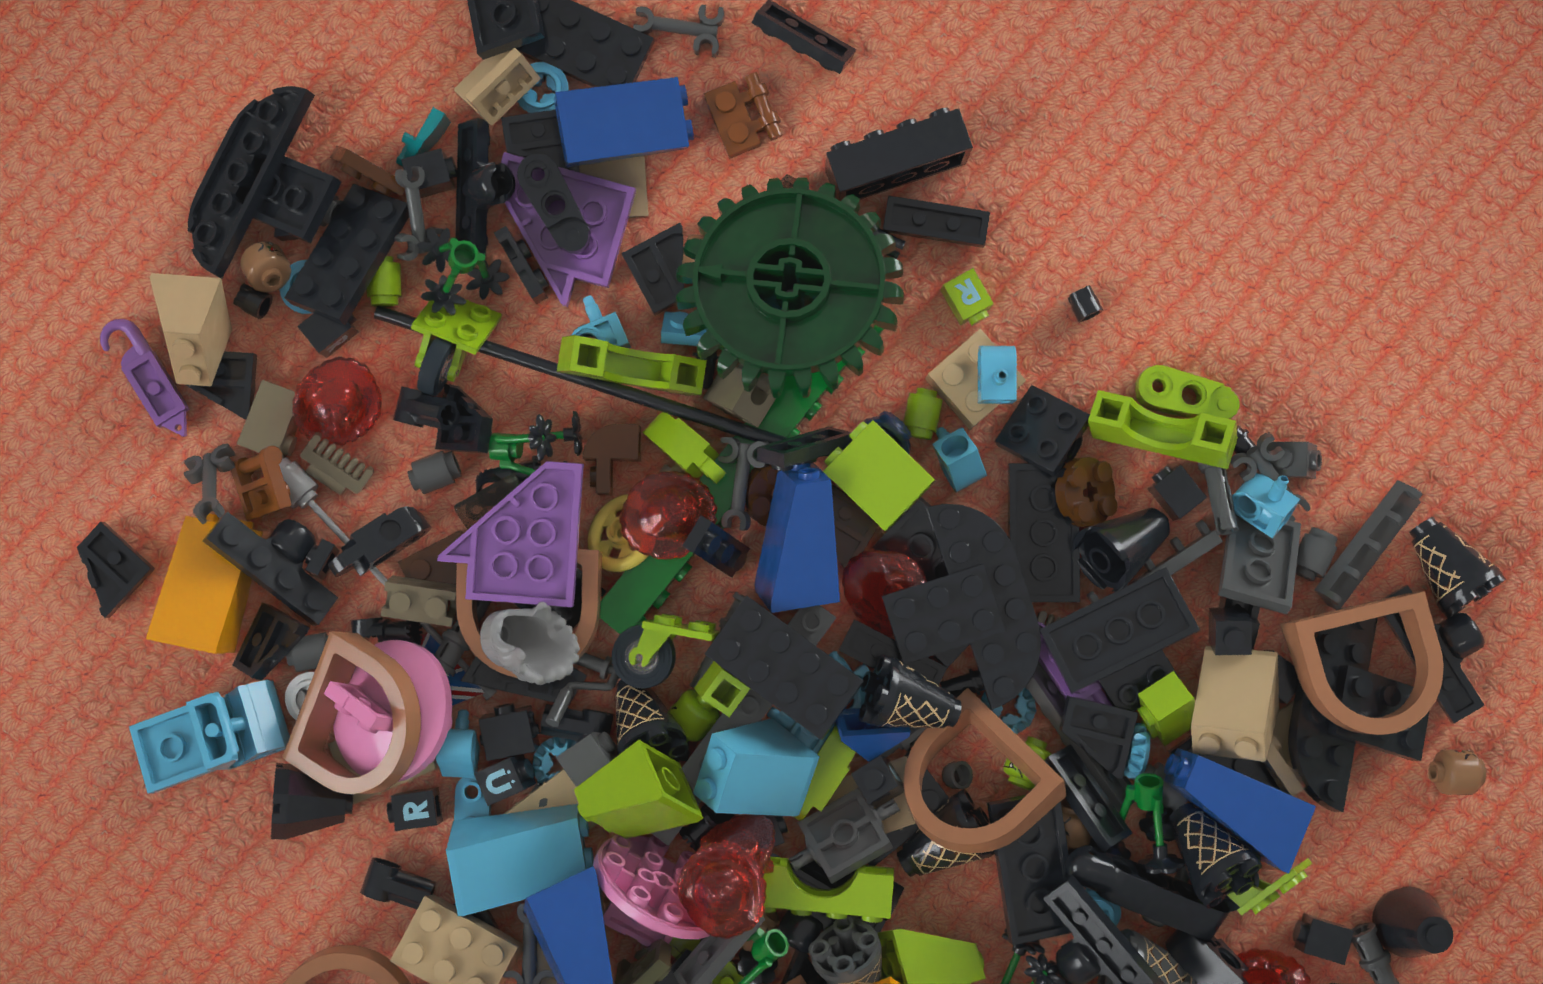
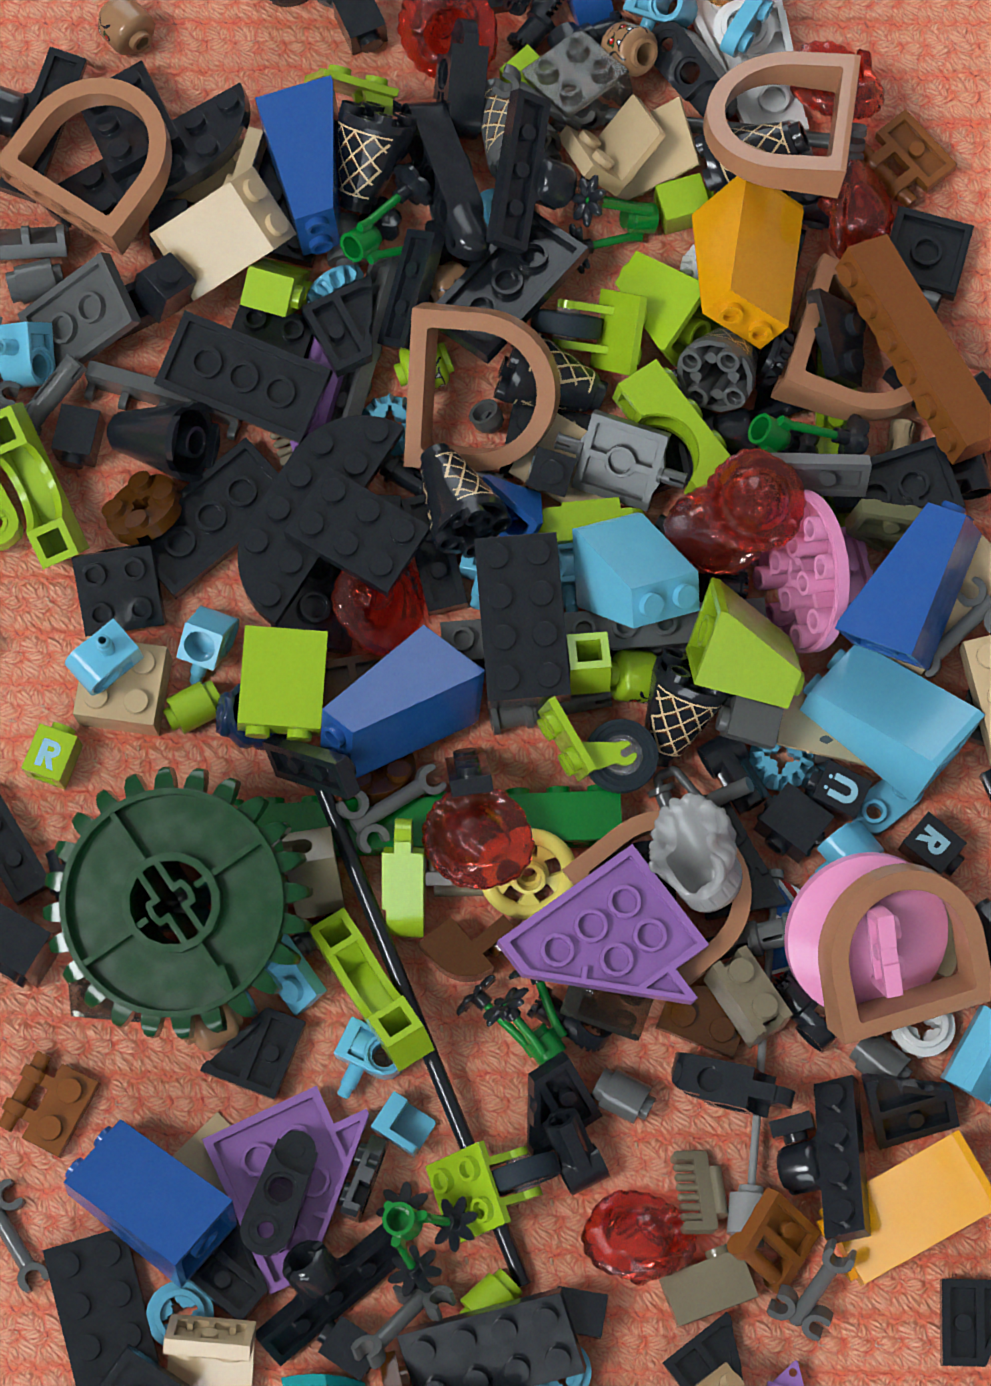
camera: 130 degrees left, 10 degrees down
(536, 320) = (403, 1124): none -> medium azure panel
(938, 905) = (616, 330): none -> lime plate

